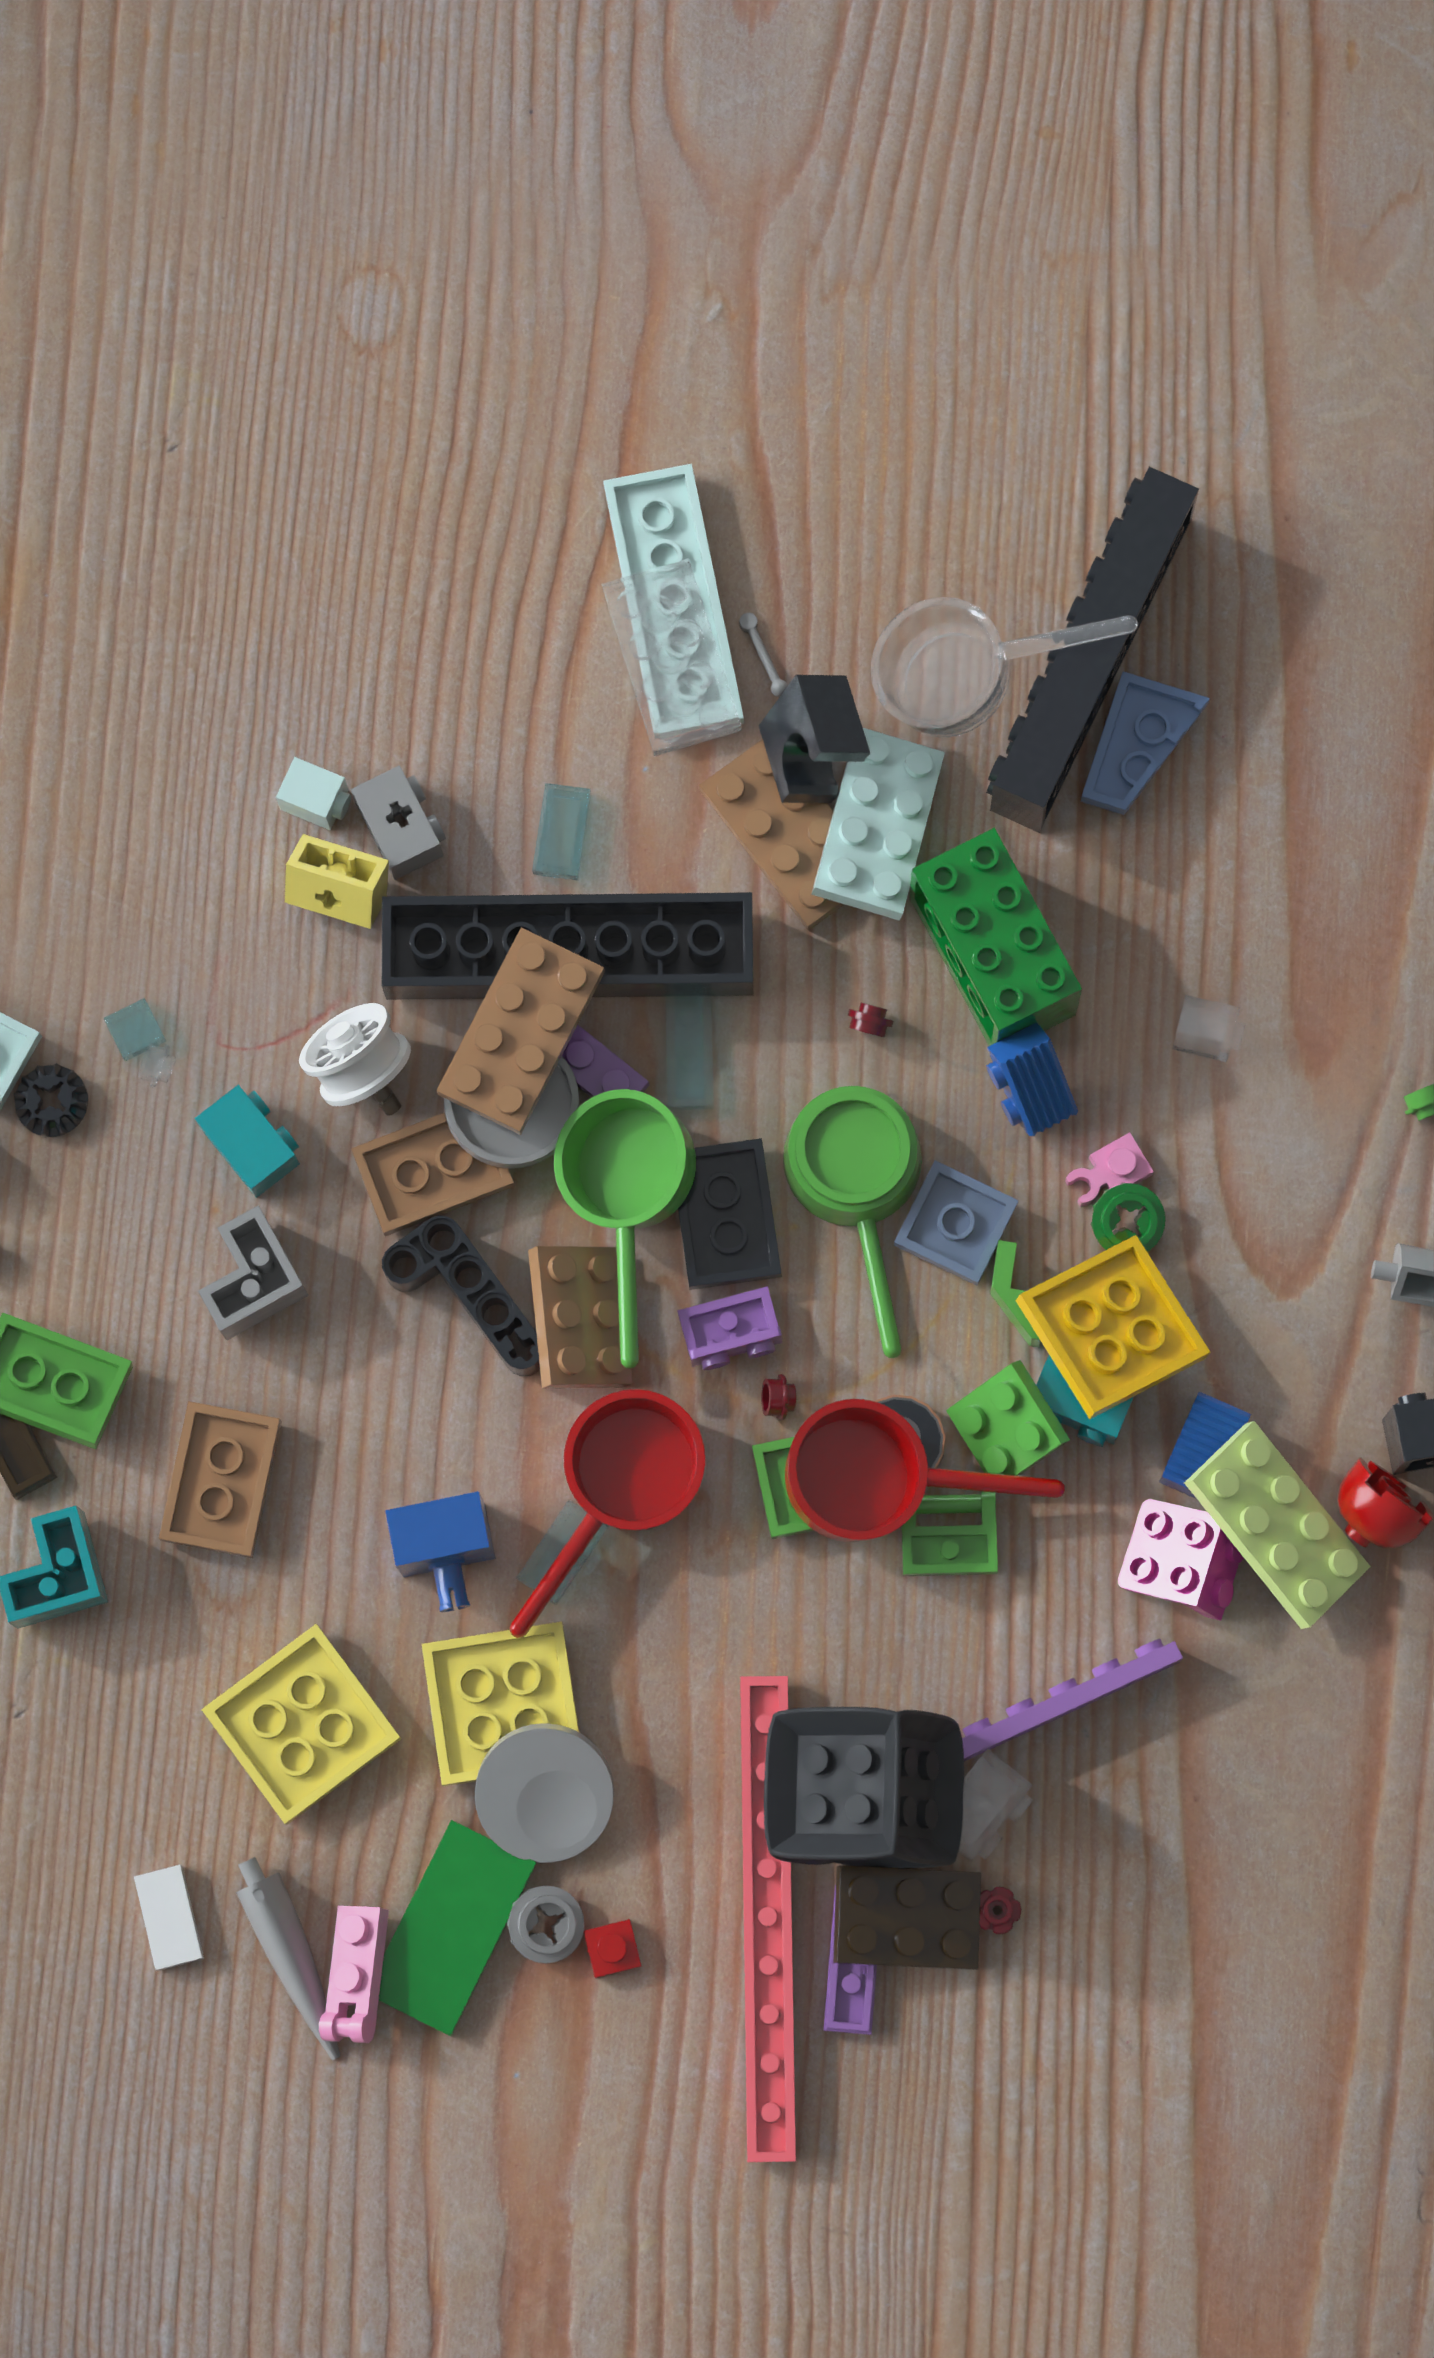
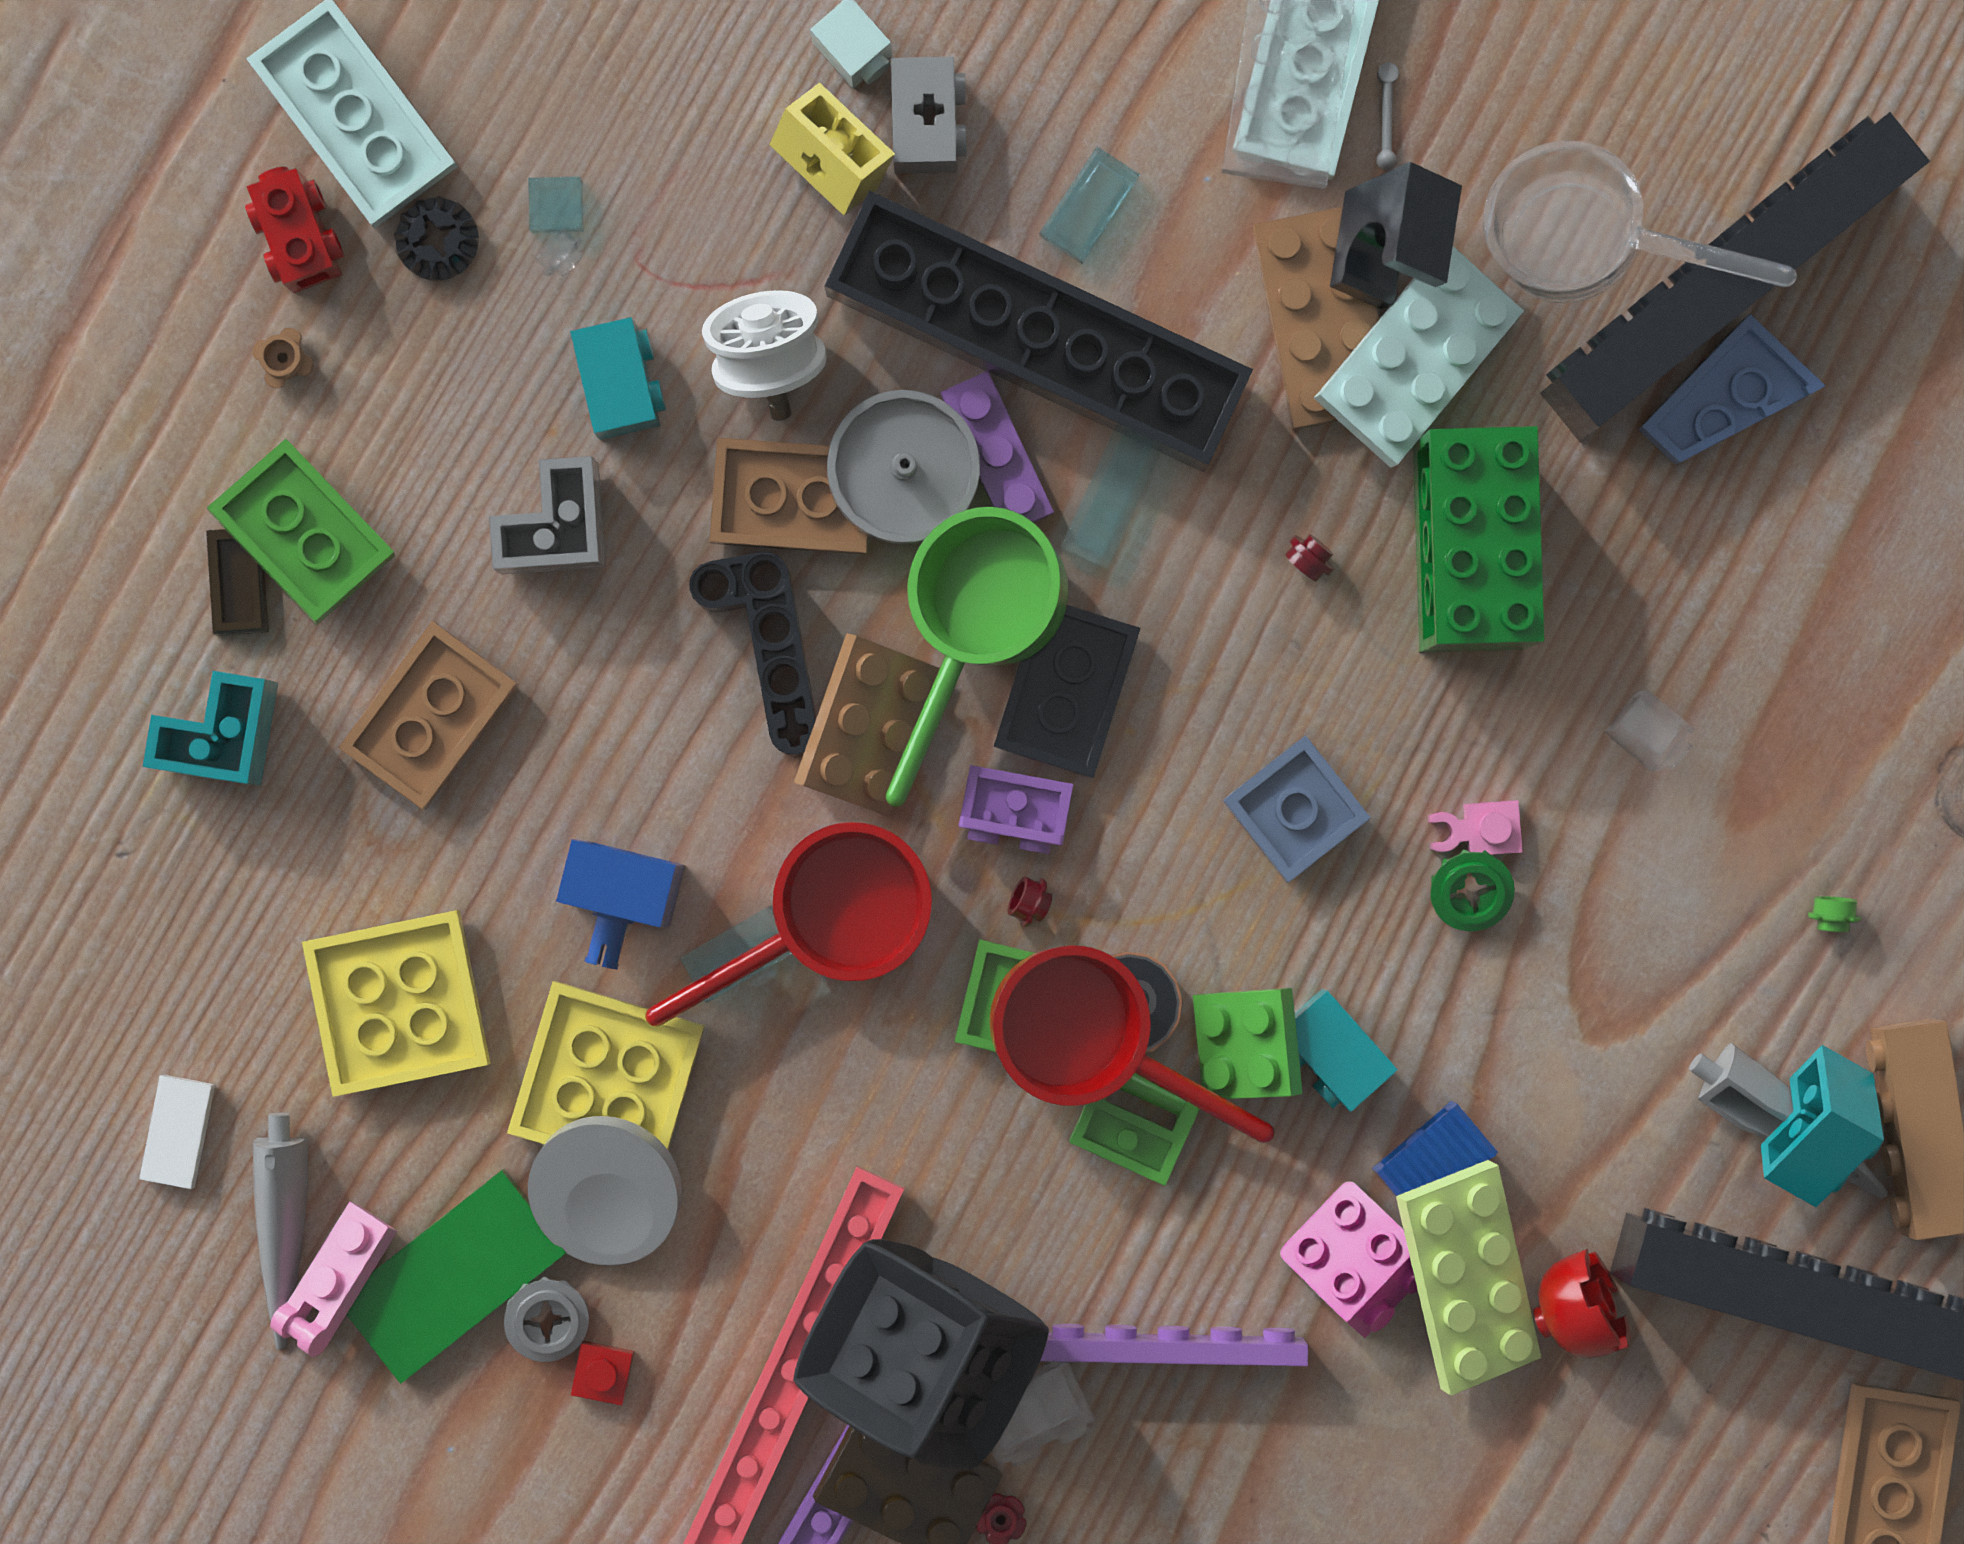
camera: 15 degrees right, 10 degrees up
(520, 1031) = (945, 402): medium nougat plate -> none
(852, 1165) = (1222, 697): bright green piece -> none
(1005, 1296) = (1321, 932): bright green slope -> none
(1031, 1080) = (1445, 702): blue brick -> none
(1112, 1326) = (1402, 999): yellow plate -> none

